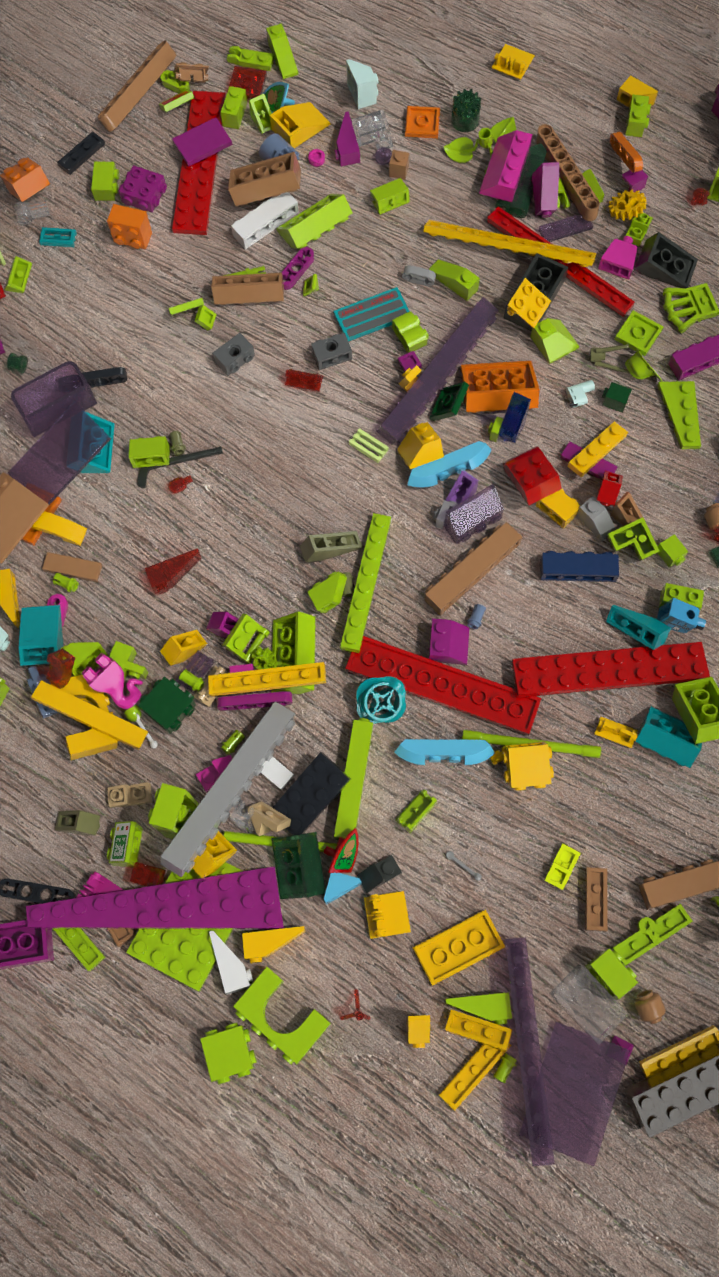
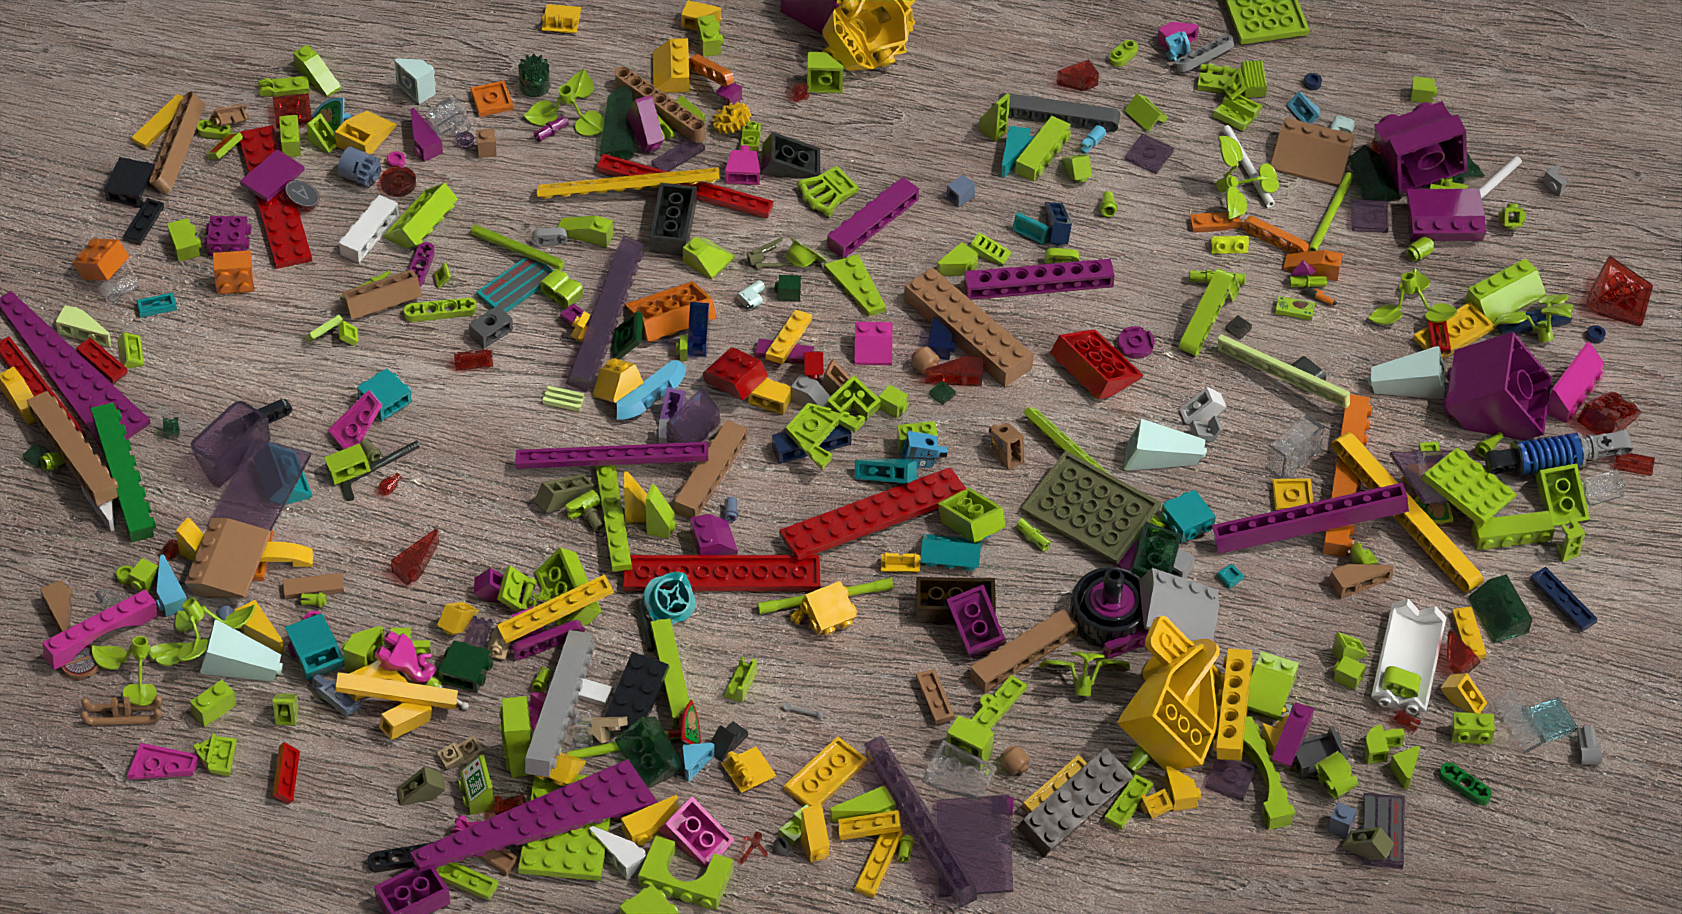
camera: 25 degrees left, 20 degrees down
(60, 669) = (353, 655): clear red leg -> none
(81, 110) = (128, 182): none -> black panel
(129, 64) = (157, 124): none -> yellow tile
(173, 411) = (356, 421): none -> dark pink wing
(192, 680) = (480, 639): lime pin -> none
(210, 391) = (388, 390): none -> teal brick
(218, 167) = (301, 195): none -> tile
(236, 346) = (393, 355): dark grey brick -> none
(265, 179) = (357, 191): medium nougat brick -> none
(296, 316) = (440, 312): none -> lime beam
(309, 972) = (696, 832): none -> dark pink slope
(312, 179) = (398, 181): none -> clear red tile
(329, 592) = (580, 528): lime slope -> none
(342, 564) = (580, 504): none -> lime hinge
(350, 716) = (645, 625): none -> pearl dark grey bar
(386, 277) = (517, 247): none -> lime axle
(387, 525) = (612, 455): none -> magenta plate
(388, 582) = (634, 500): none -> yellow slope
(390, 196) = (489, 173): lime hinge -> none
(390, 1014) = (778, 848): none -> dark grey hinge
(404, 605) = (659, 514): none -> lime slope
(412, 998) = (792, 829): none -> lime slope
(419, 750) = (747, 622): medium azure brick -> none
(462, 166) = (551, 128): none -> magenta pin
(506, 165) = (597, 113): dark pink slope -> none
(528, 303) = (671, 227): yellow hinge -> none
(562, 866) = (894, 681): neon yellow slope -> none
(585, 558) = (814, 425): none -> lime wing
(592, 137) = (671, 66): none -> yellow slope
(639, 332) = (788, 225): lime plate -> none
(655, 798) = (934, 592): none -> dark brown brick
(666, 837) = (976, 621): none -> magenta slope
(675, 482) = (873, 343): none -> dark pink slope

